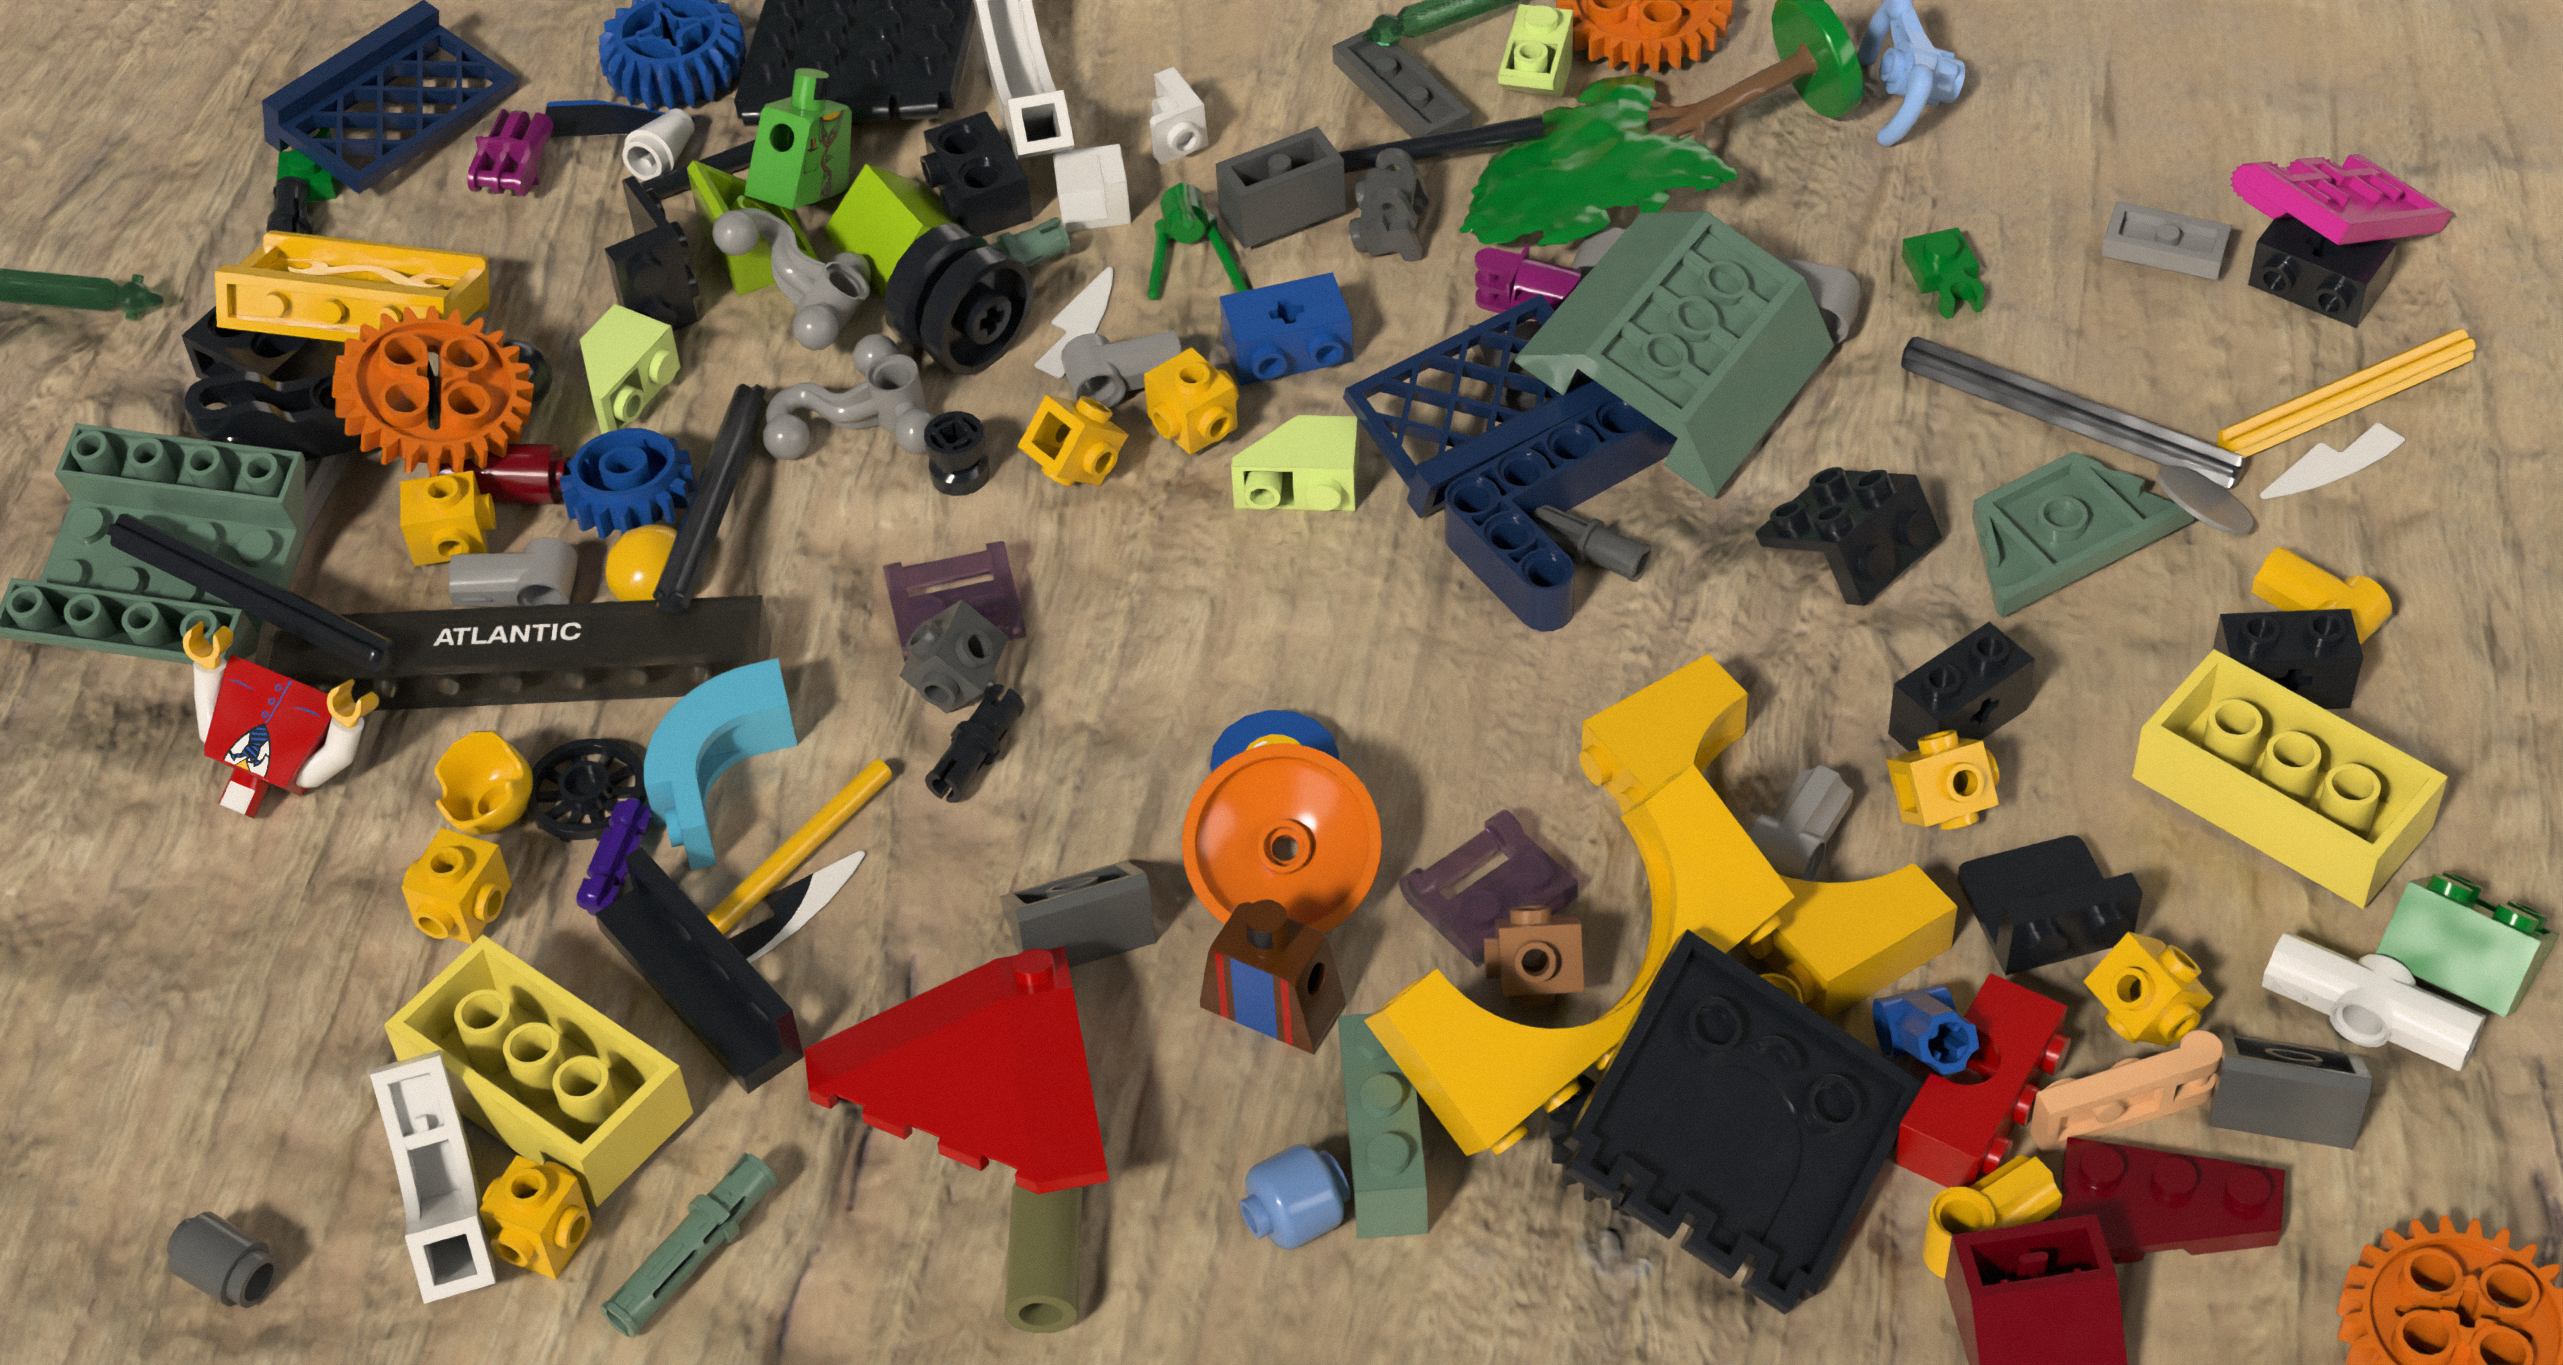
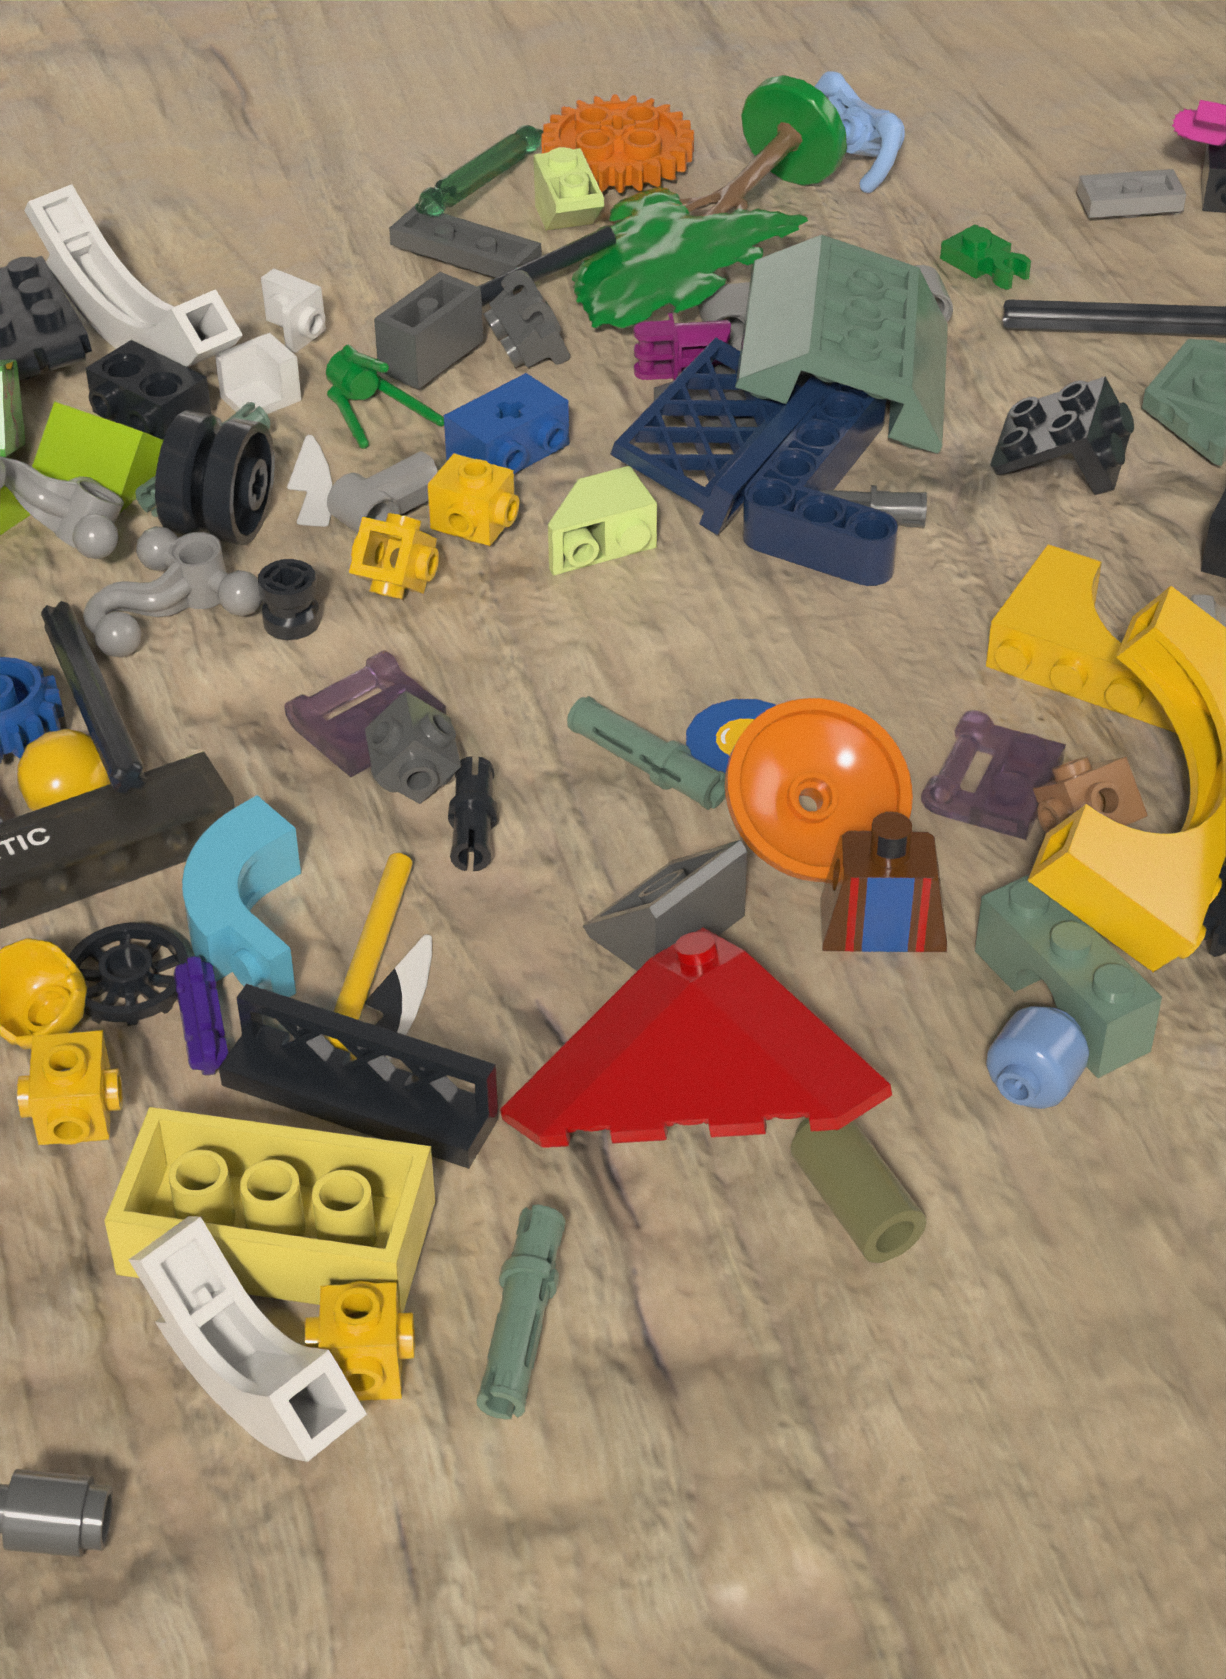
camera: 30 degrees left, 5 degrees down
(1182, 756) = (665, 762): none -> sand green pin

